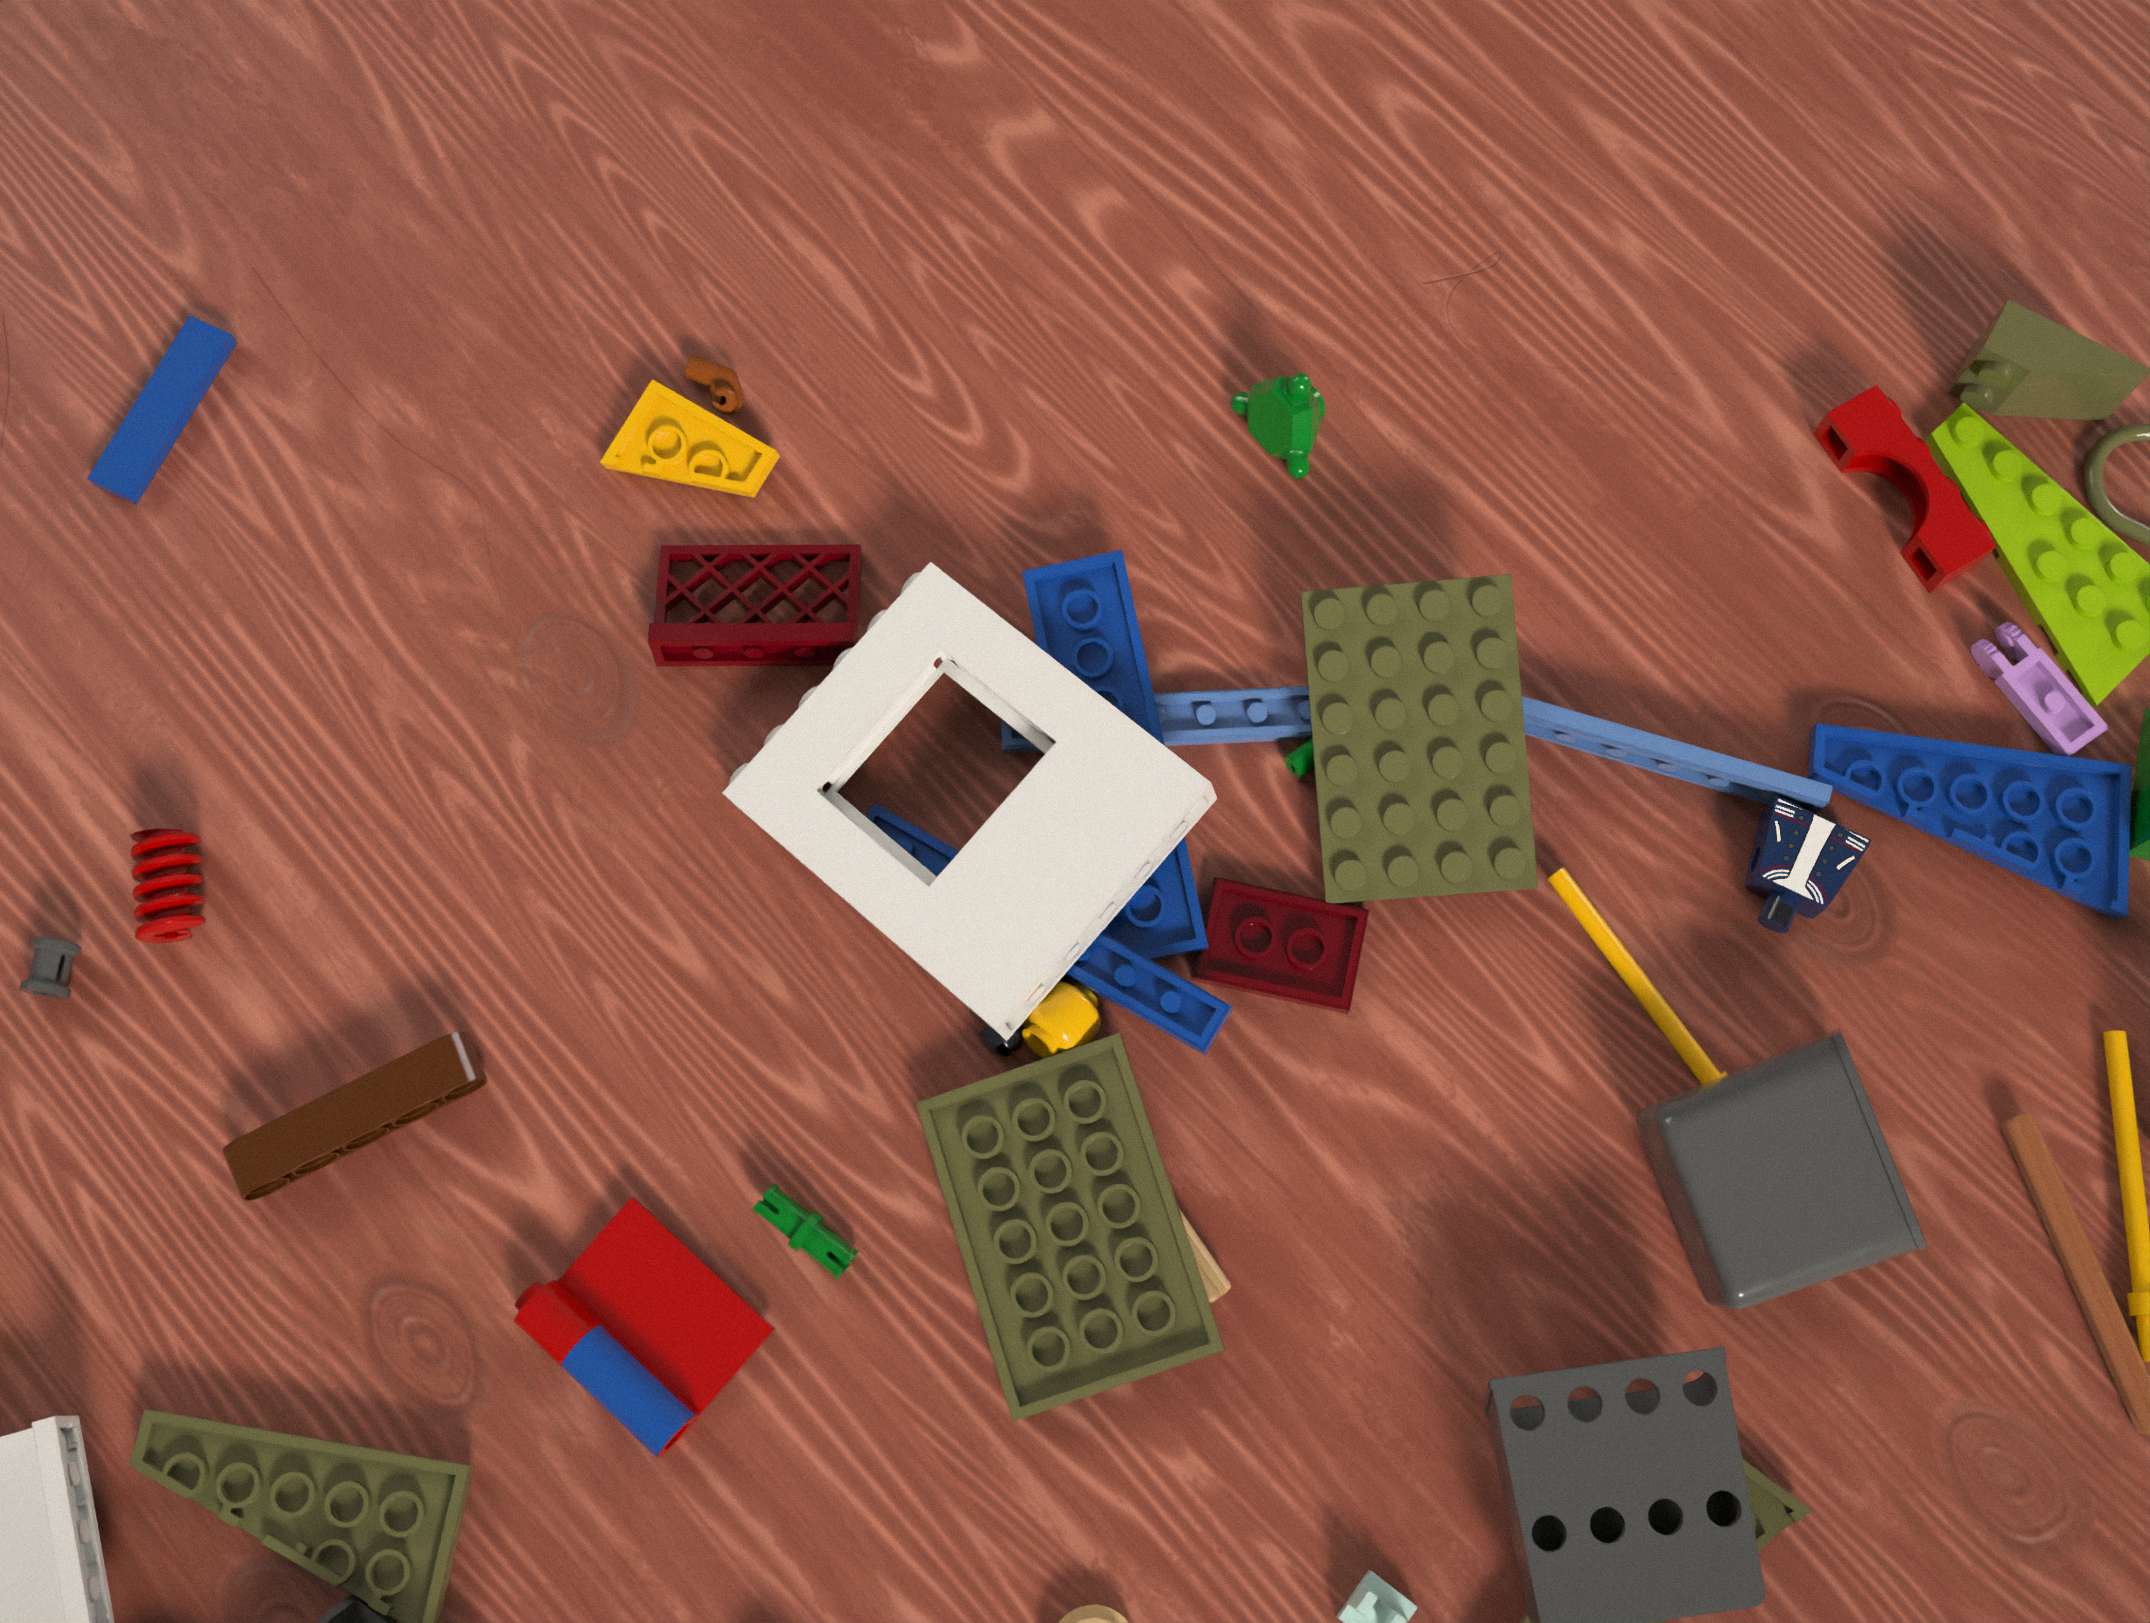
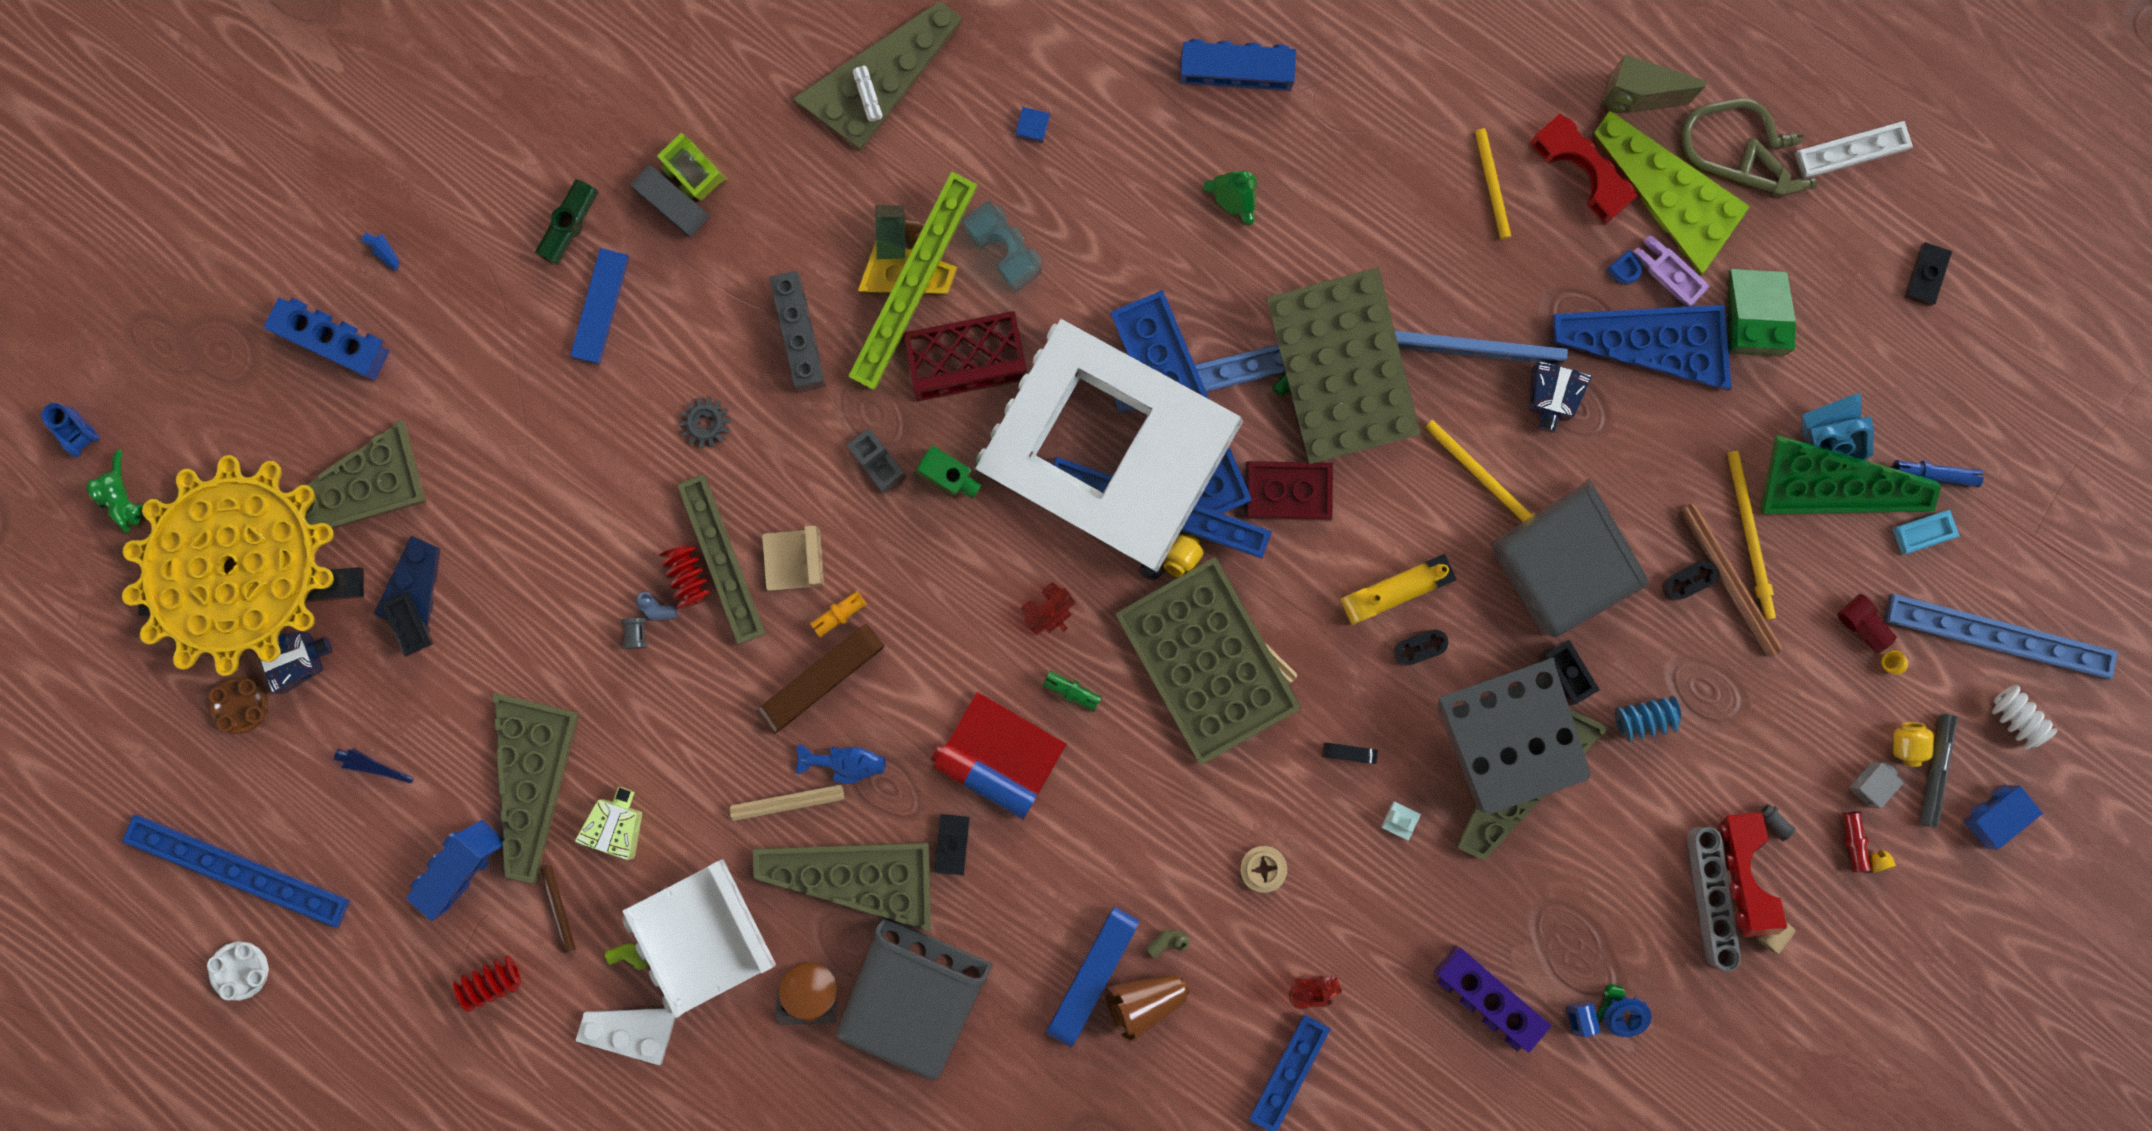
camera: 15 degrees left, 10 degrees up
(99, 933) = (653, 609): none -> sand blue arm
(162, 247) = (575, 205): none -> dark green piece
(234, 1334) = (786, 802): none -> tan axle
(241, 871) = (721, 559): none -> olive plate
(267, 623) = (693, 420): none -> dark grey gear
(325, 262) = (669, 201): none -> dark grey beam
(365, 1284) = (848, 763): none -> blue animal
(368, 893) = (793, 559): none -> tan bracket
(374, 214) = (691, 167): none -> lime window
(421, 1005) = (838, 613): none -> light orange pin
(478, 509) = (797, 331): none -> dark grey brick
(516, 1479) = (952, 844): none -> black plate
(558, 751) = (876, 460): none -> dark grey slope
(656, 775) = (934, 469): none -> green torso
(674, 372) = (890, 231): none -> clear green slope
(693, 458) = (913, 280): none -> lime plate
(694, 150) = (867, 93): none -> white axle
(708, 146) = (893, 68): none -> olive wing
(800, 1078) = (1050, 614): none -> clear red hips
(848, 397) = (990, 225): none -> clear light blue arch
(962, 252) = (1032, 124): none -> blue tile
(1302, 1457) = (1350, 753): none -> black beam
(1327, 217) = (1238, 65): none -> blue brick
(1448, 1162) = (1398, 589): none -> yellow piece
(1475, 1294) = (1419, 640): none -> black beam
(1738, 488) = (1493, 184): none -> yellow bar
(1757, 1387) = (1573, 674): none -> black brick
(1892, 1506) = (1648, 717): none -> dark azure piece
(1956, 673) = (1626, 269): none -> blue tile
(2001, 1245) = (1692, 587): none -> black beam

